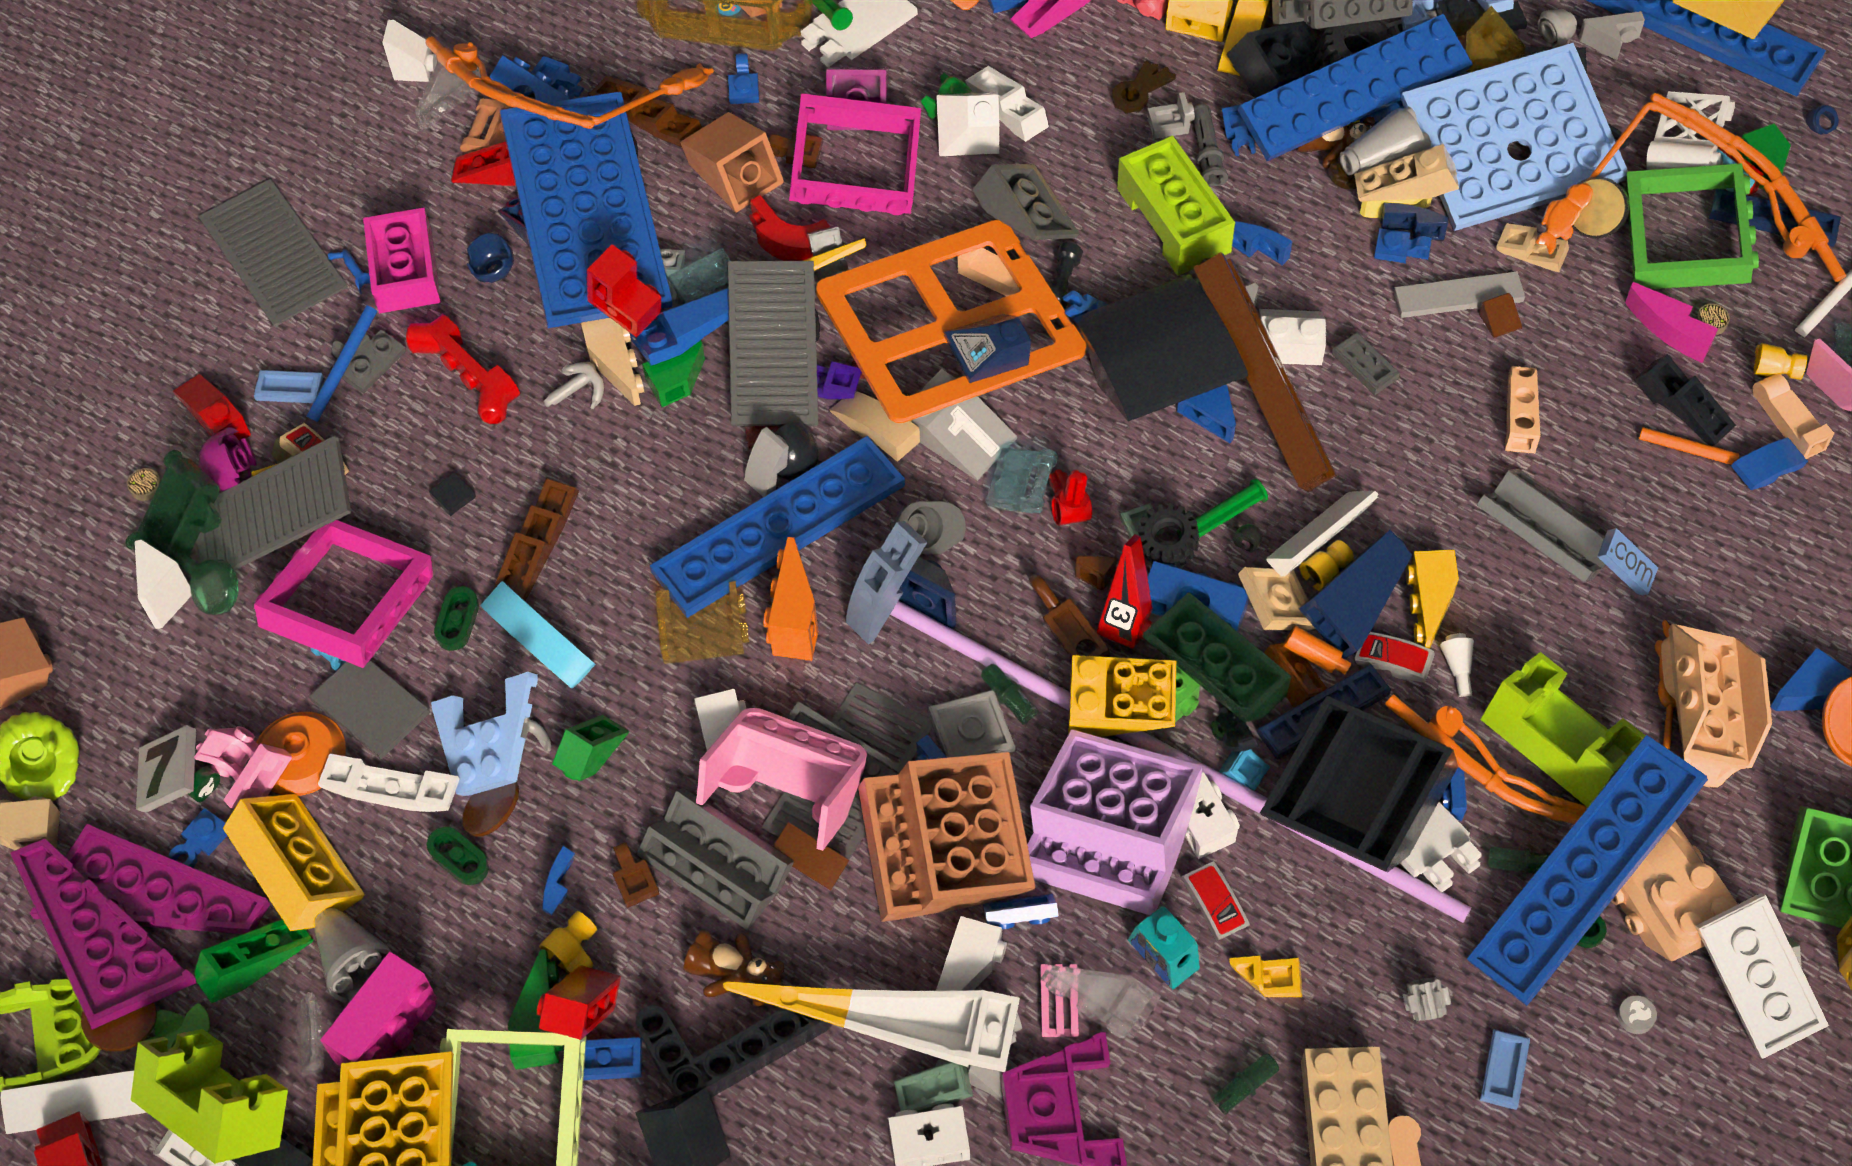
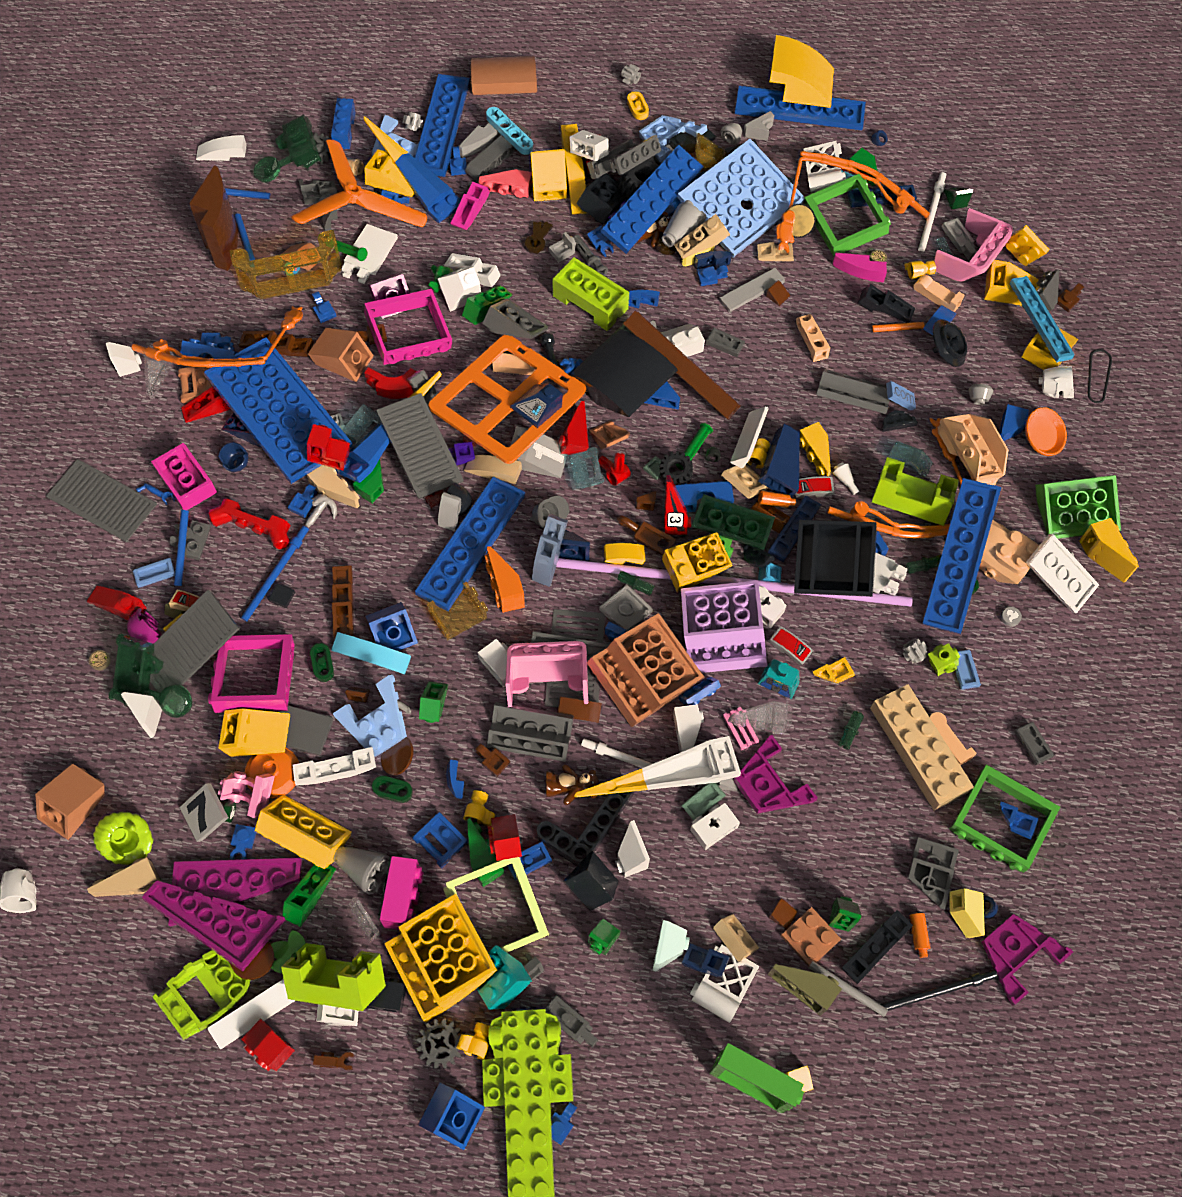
camera: 30 degrees left, 5 degrees up
(296, 679) = (253, 732): none -> yellow slope
(483, 688) = (357, 694): none -> reddish brown slope
(499, 961) = (445, 834): none -> blue plate
(513, 422) = (295, 543): none -> blue bar
(550, 364) = (302, 503): none -> blue plate
(587, 608) = (392, 627): none -> blue slope
(769, 1117) = (632, 853): none -> white slope
(815, 935) = (602, 749): none -> white bar
(979, 156) = (478, 305): none -> green slope
(1009, 634) = (620, 552): none -> yellow slope
(1031, 419) = (575, 436): none -> red slope
(1091, 439) = (608, 434): none -> nougat slope
(1470, 1033) = (944, 659): none -> lime brick
(1595, 671) = (911, 456): none -> clear light blue slope
(1603, 602) = (898, 420): none -> black plate
(1763, 504) = (949, 342): none -> black piece
(1778, 612) = (980, 393): none -> light grey cone

